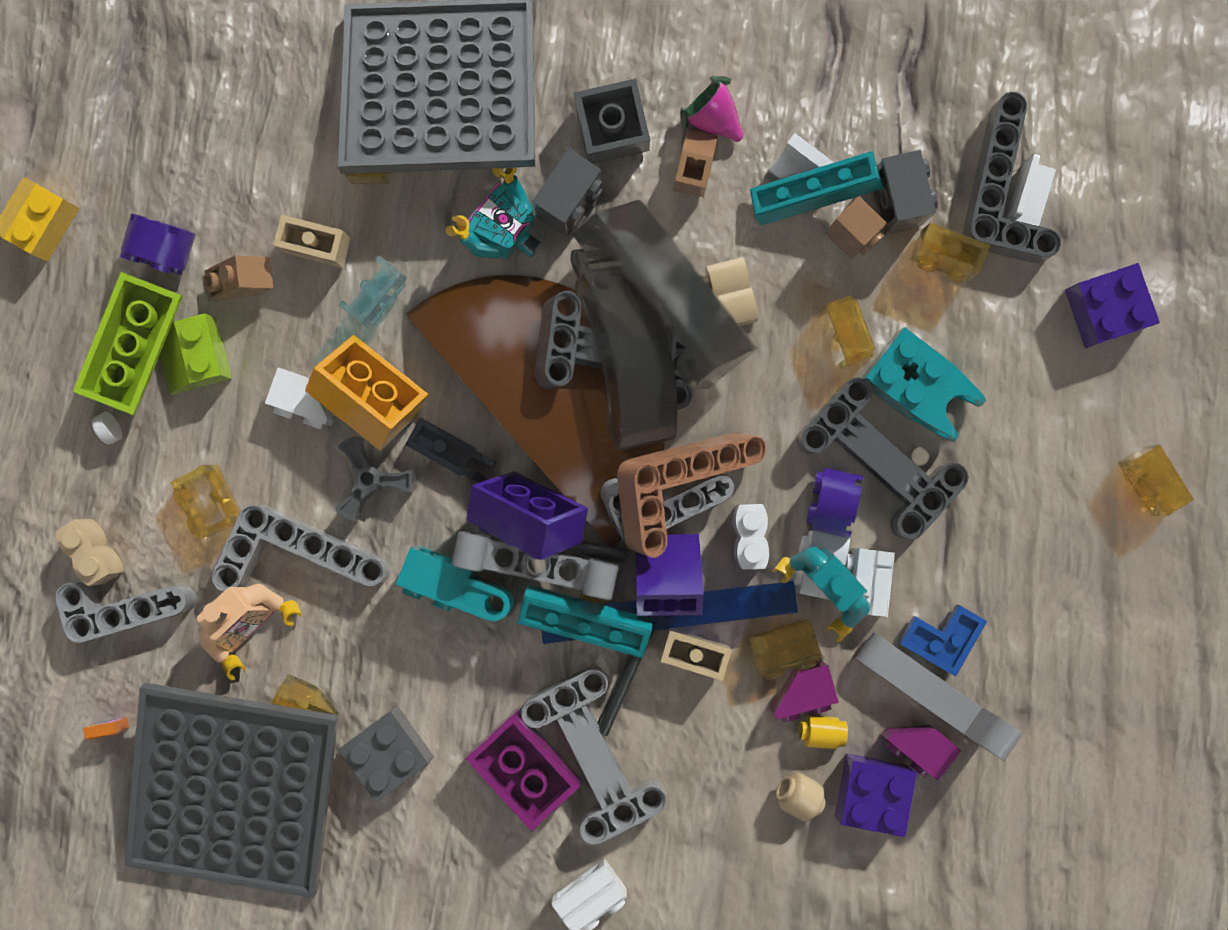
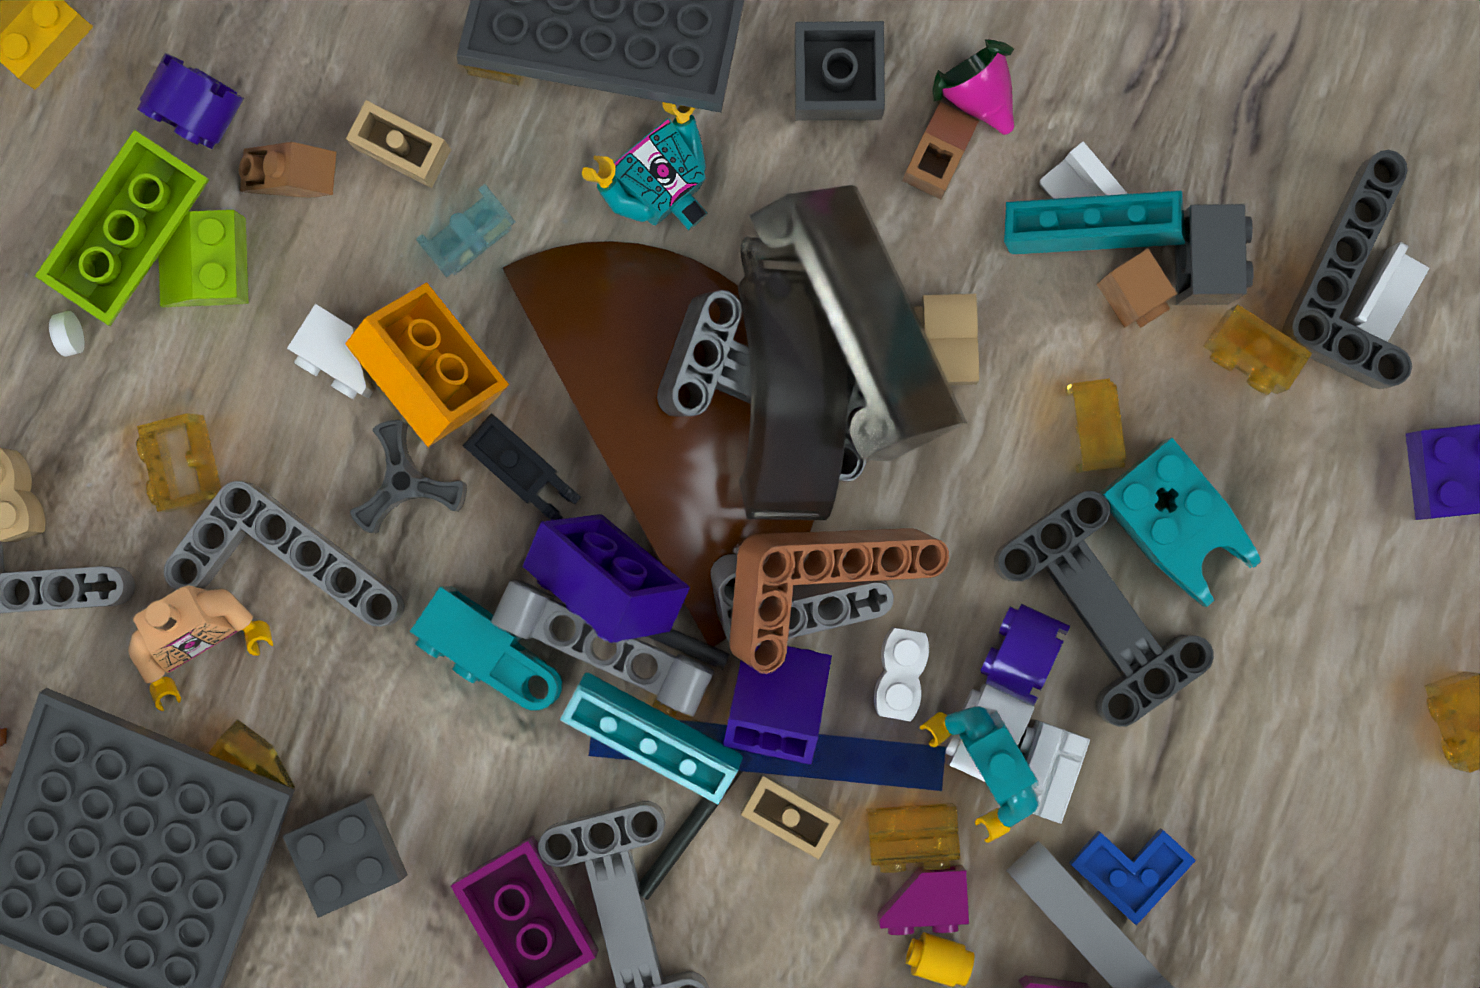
camera: 20 degrees right, 0 degrees up
(568, 193) = (758, 156): dark grey brick -> none

